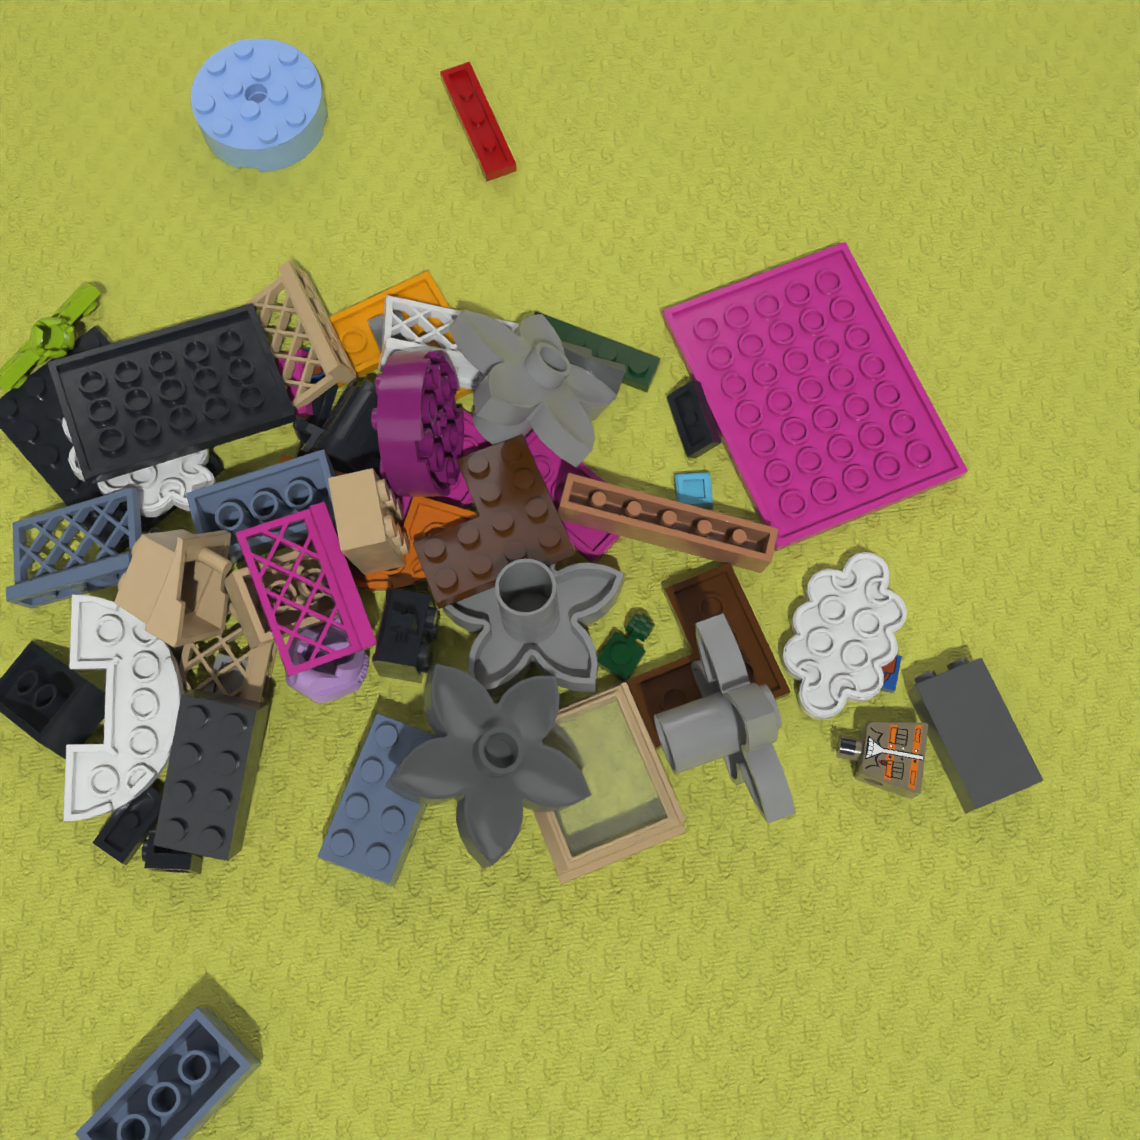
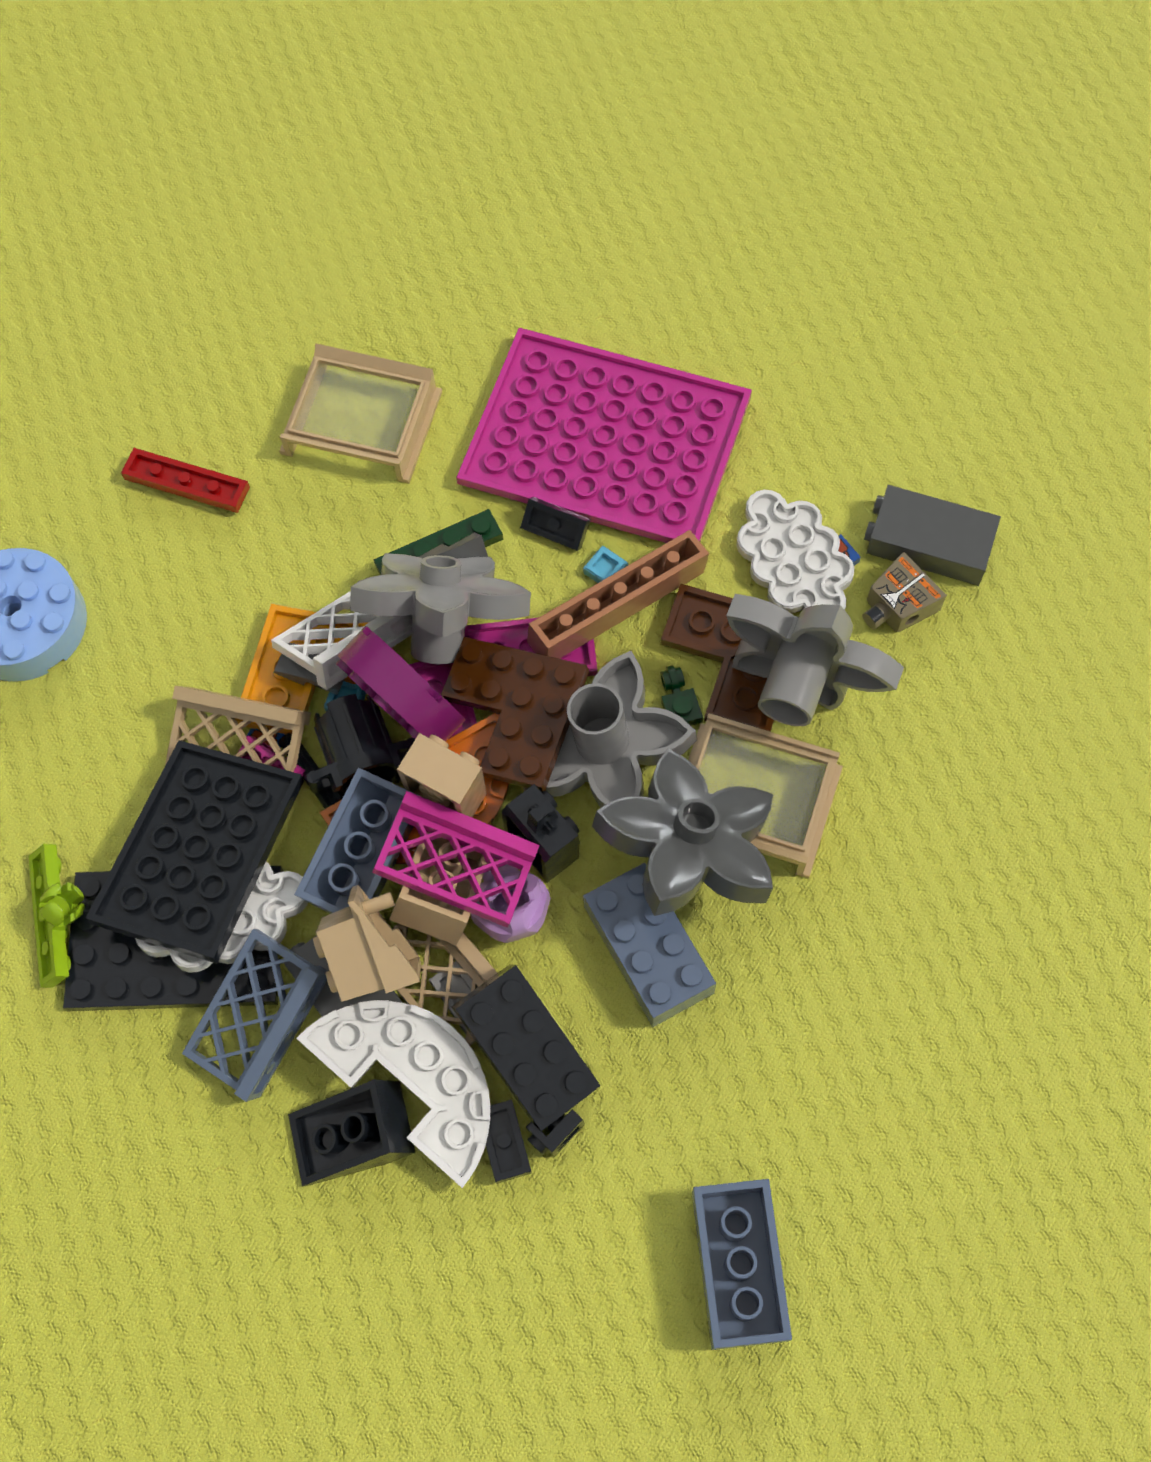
camera: 45 degrees left, 5 degrees down
(657, 193) = (363, 409): none -> piece

